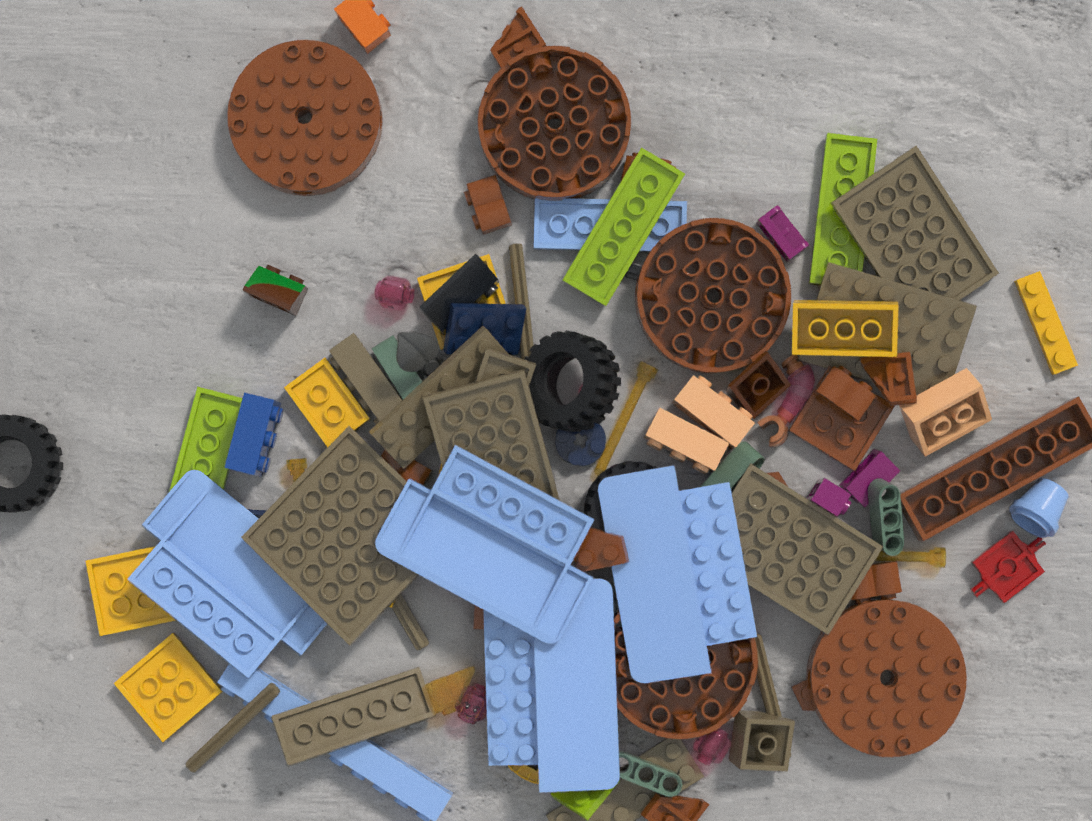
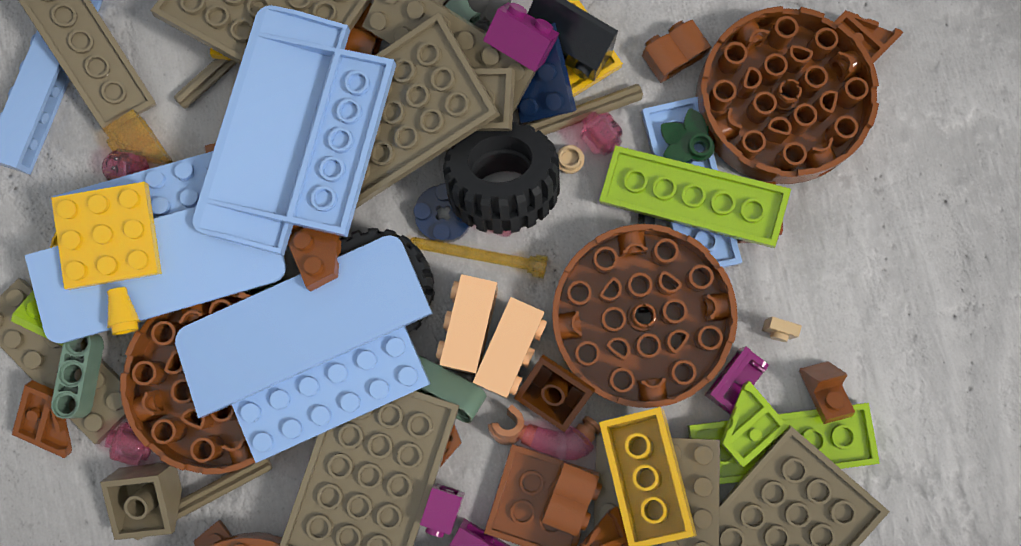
camera: 70 degrees right, 5 degrees down
(461, 334) = (521, 35): none -> magenta brick
(541, 719) = (106, 235): none -> yellow plate
(546, 288) = (601, 133): none -> clear pink head
(560, 320) = (570, 159): none -> tan plate
(568, 220) = (683, 137): none -> dark green plate
(608, 719) = (121, 313): none -> yellow cone
(751, 185) = (781, 329): none -> tan plate
(809, 163) = (826, 390): none -> dark orange slope
(823, 233) = (751, 426): none -> lime wing

